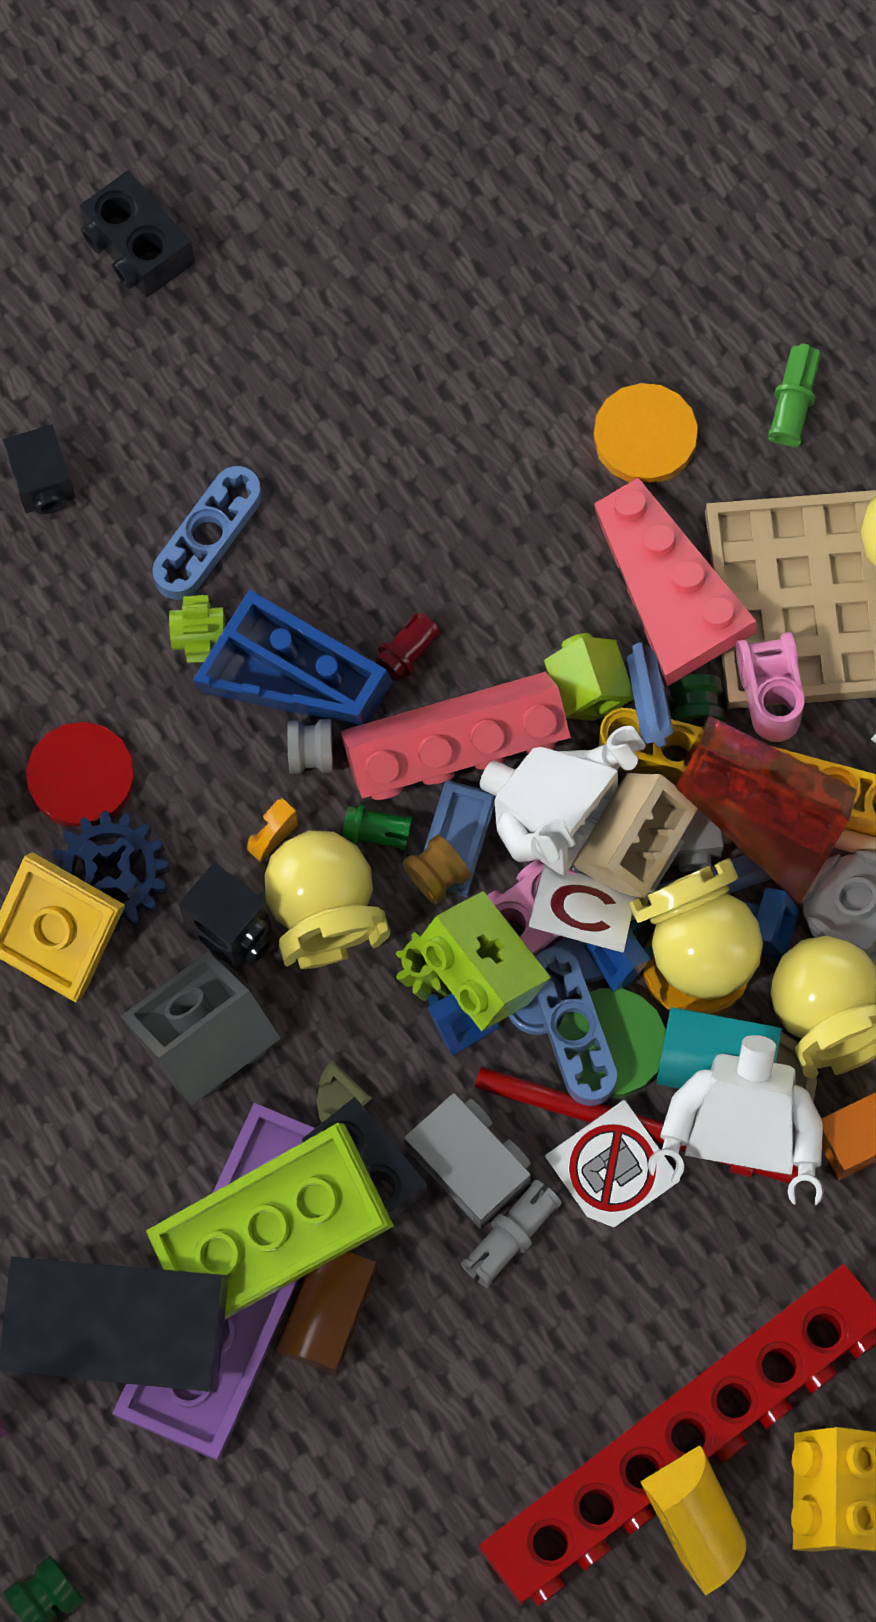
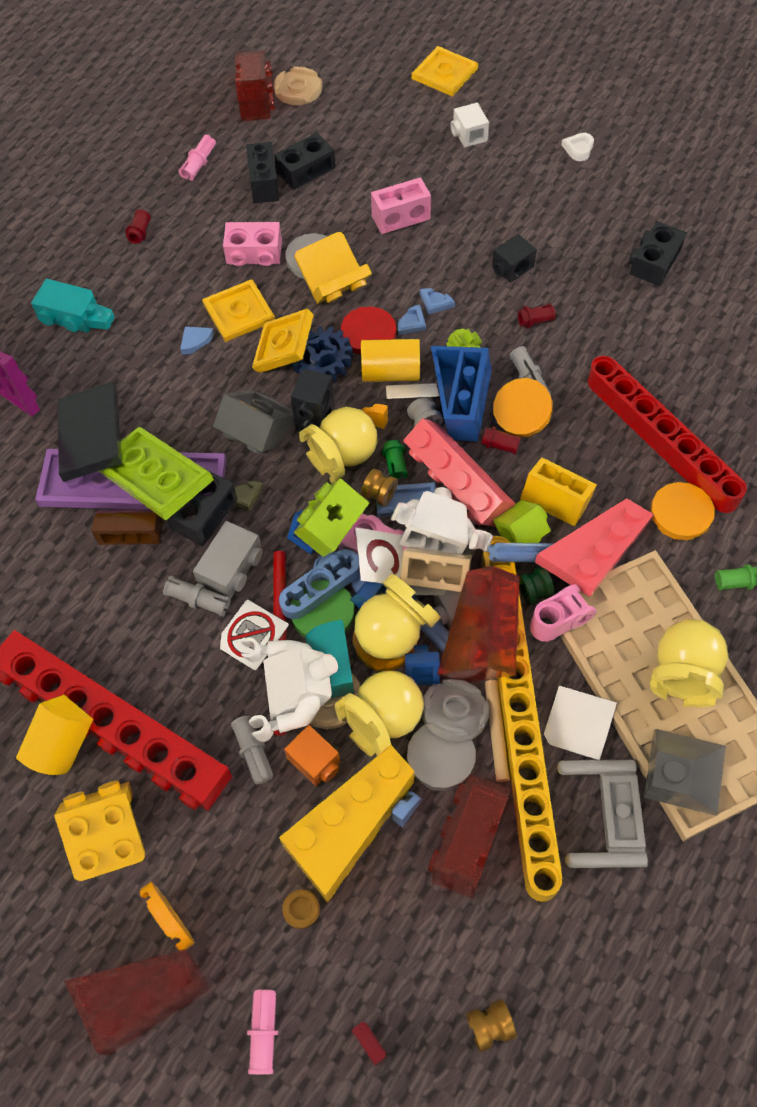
camera: 70 degrees right, 10 degrees down
(62, 637) = (436, 301): none -> medium blue tile
(91, 693) = (412, 321): none -> medium blue tile
(174, 759) = (390, 360): none -> yellow brick
(175, 486) = (535, 315): none -> dark red pin
(217, 494) = (512, 328): medium blue beam -> none
(255, 748) = (412, 391): none -> white sticker
(297, 547) = (526, 366): none -> light grey pin
(363, 585) = (523, 407): none -> light orange tile
(517, 376) = (666, 434): none -> red beam
(544, 598) = (558, 491): none -> yellow brick
(812, 1225) = (252, 750): none -> light grey axle

